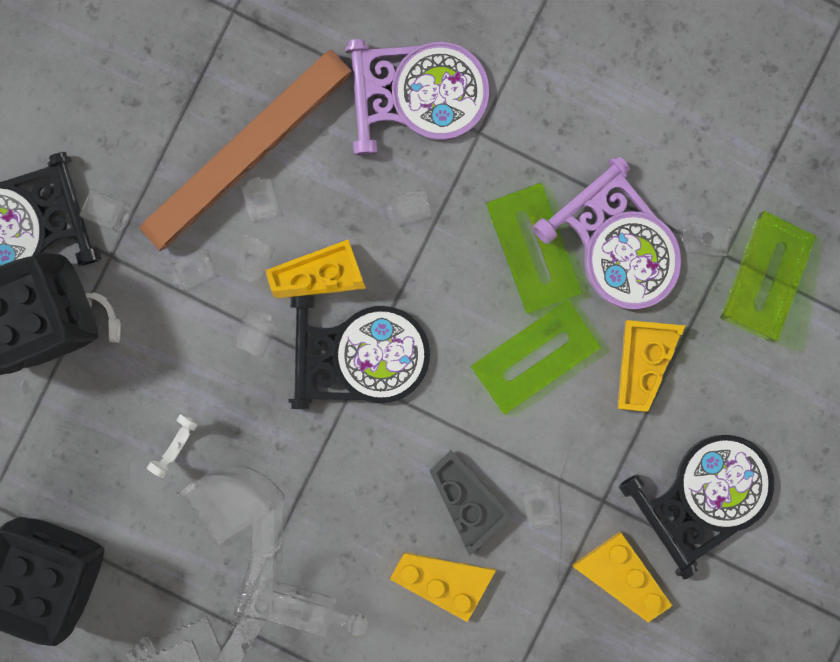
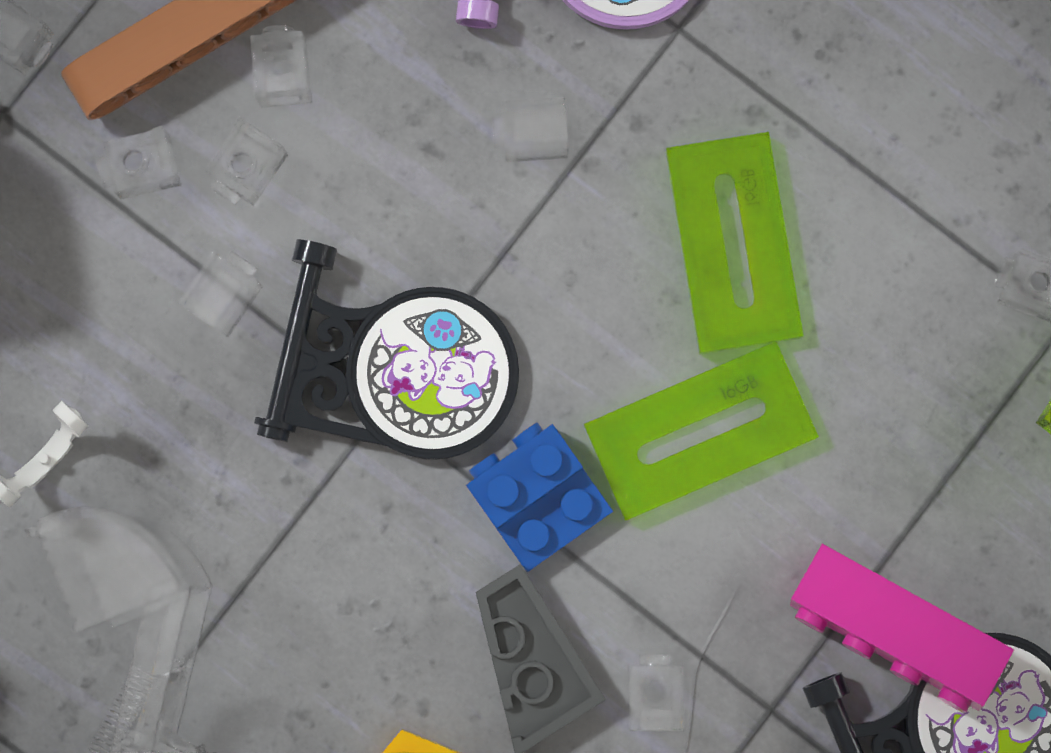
camera: 15 degrees right, 5 degrees down
(317, 273) = (352, 208): yellow wing -> none
(452, 410) = (537, 495): none -> blue plate
(629, 256) = (900, 287): piece -> none
(644, 360) = (890, 475): yellow wing -> none
(666, 444) = (900, 628): none -> dark pink brick

